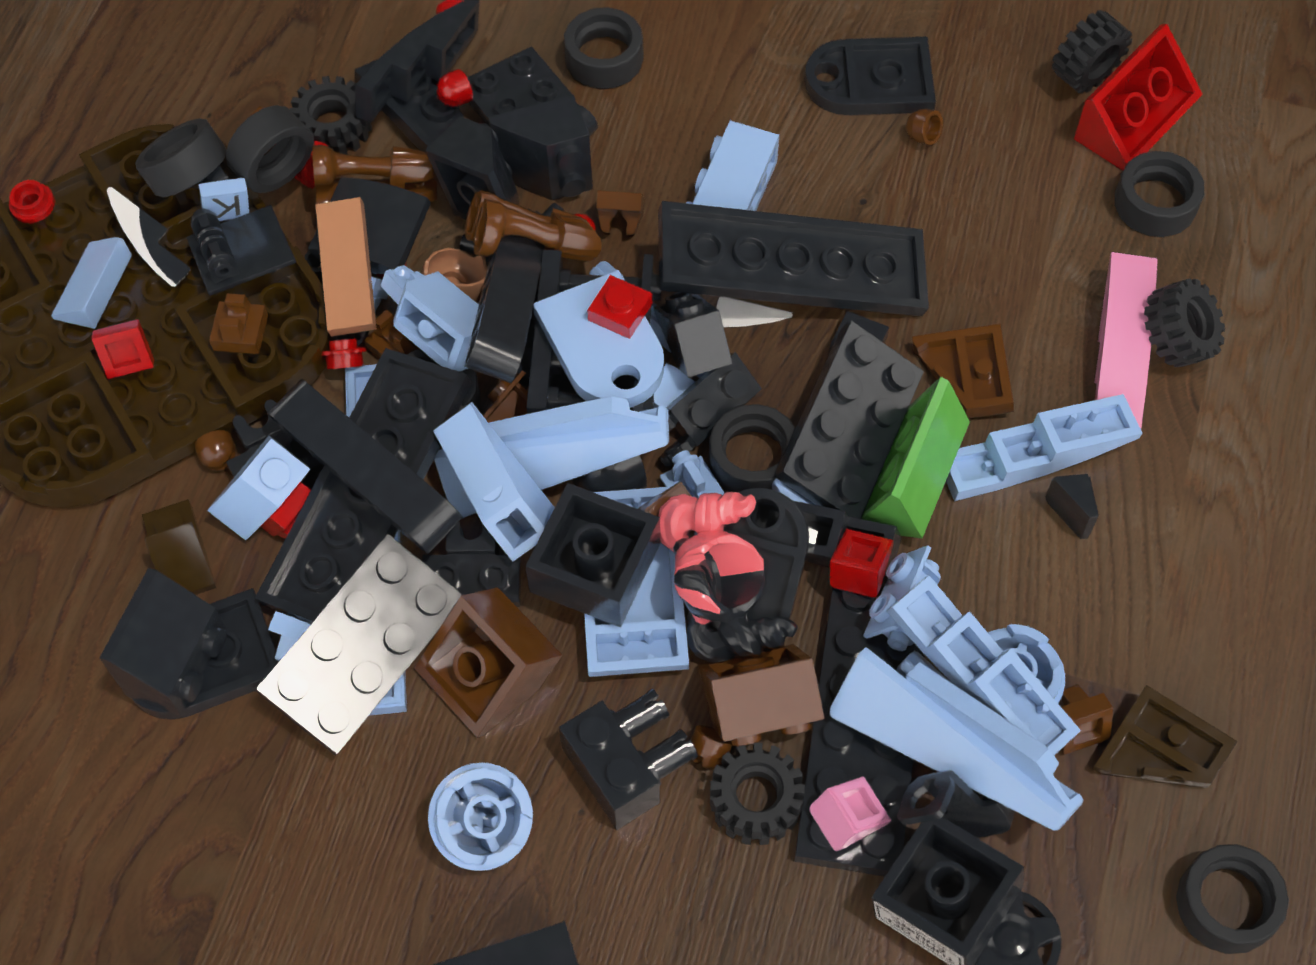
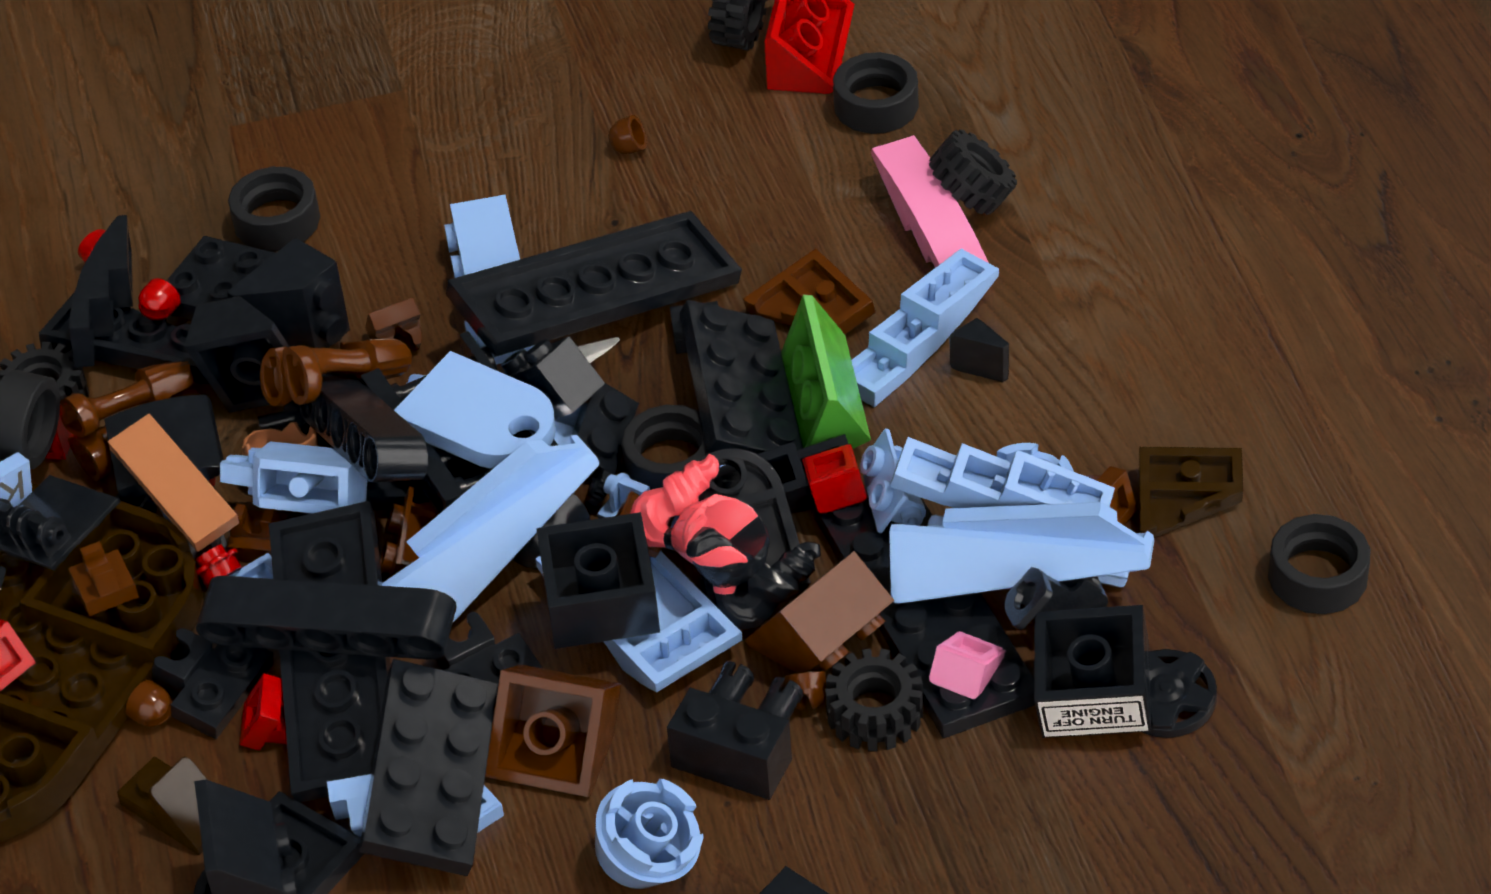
camera: 30 degrees left, 15 degrees down
(259, 488) = (228, 698): light blue slope -> none
(495, 481) = (459, 572): light blue slope -> none
(619, 306) = (477, 374): red plate -> none
(872, 76) = (547, 120): black tile -> none

